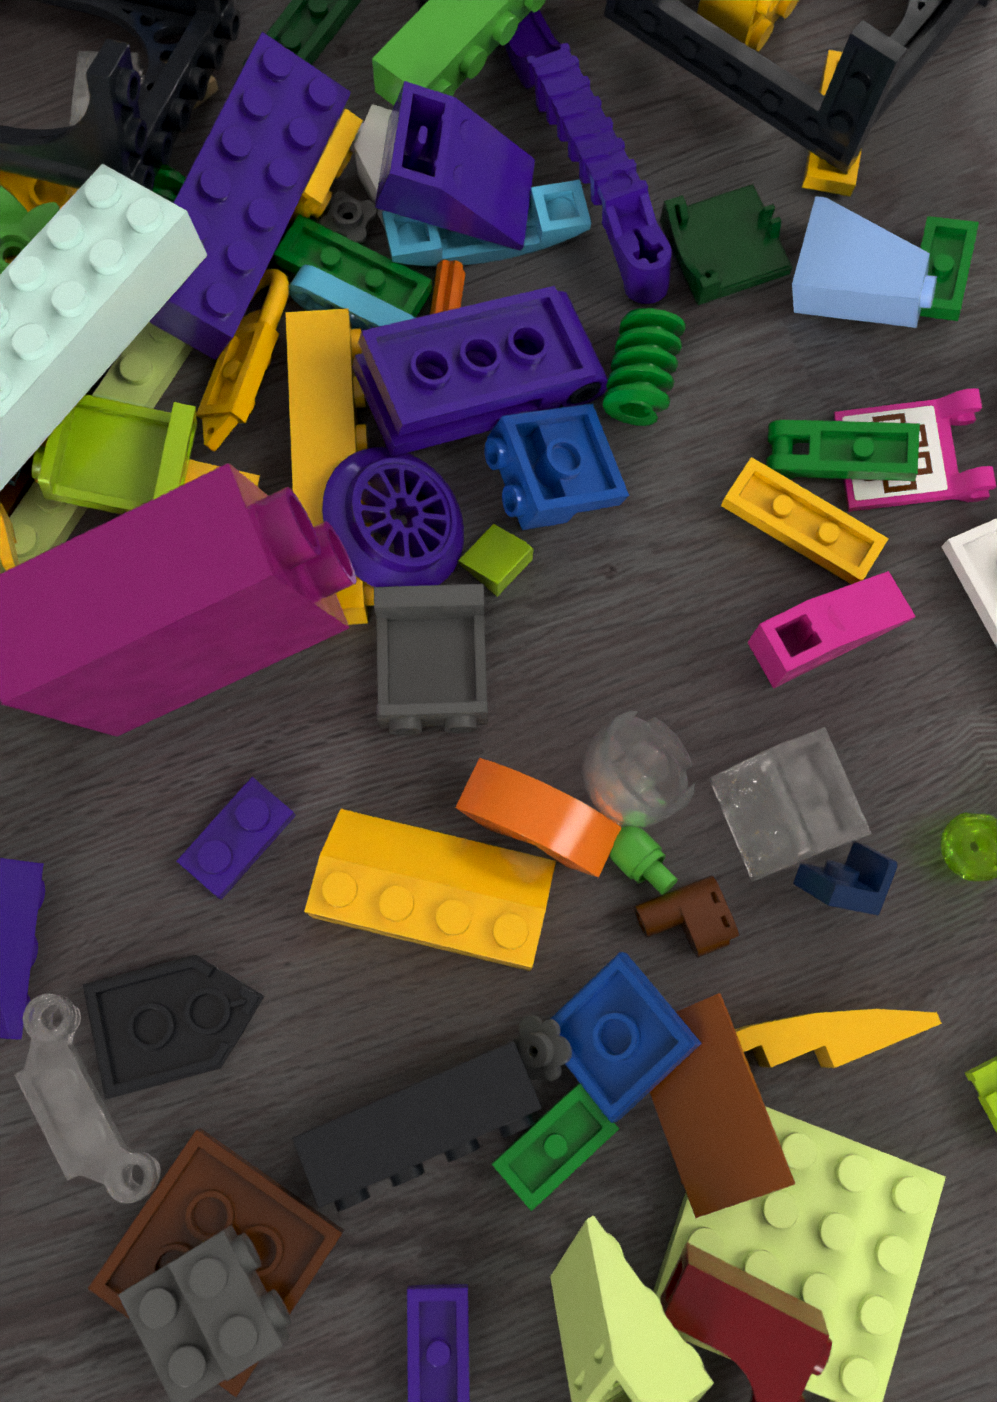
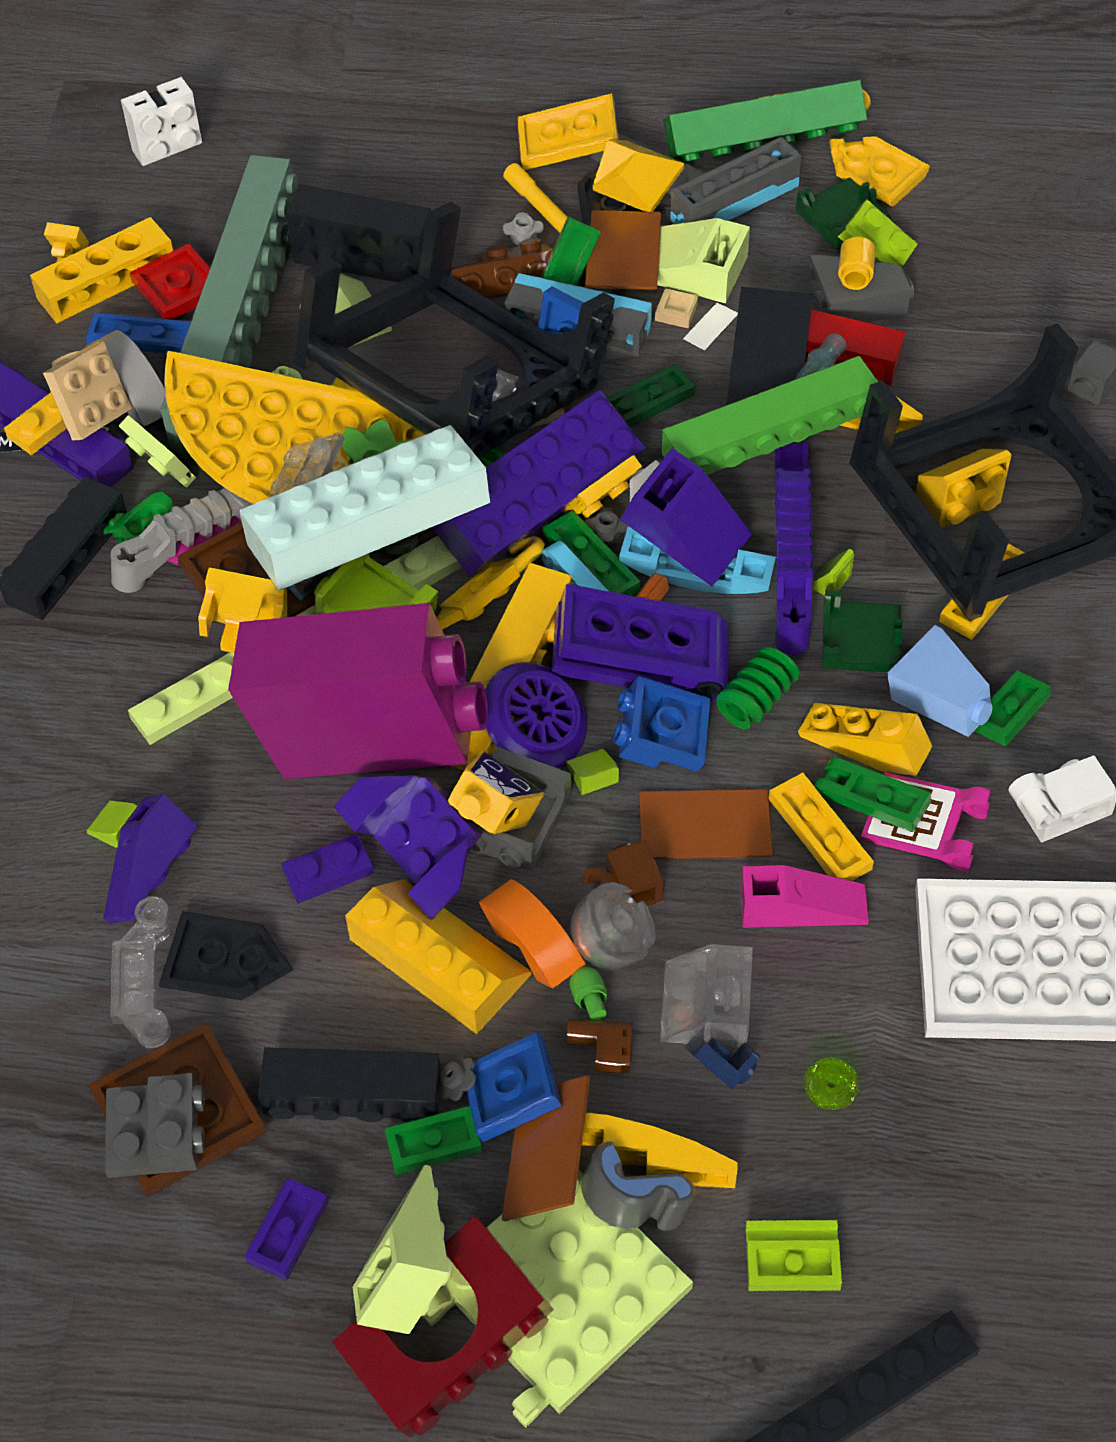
camera: 30 degrees right, 20 degrees down
(339, 746) = (417, 830): none -> dark purple piece
(403, 659) = (491, 793): none -> yellow torso
(612, 683) = (633, 867): none -> reddish brown brick
(655, 167) = (834, 573): none -> lime slope
(660, 570) = (706, 823): none -> dark orange window
(799, 374) = (871, 736): none -> yellow slope
(833, 1130) = (633, 1199): none -> dark grey animal

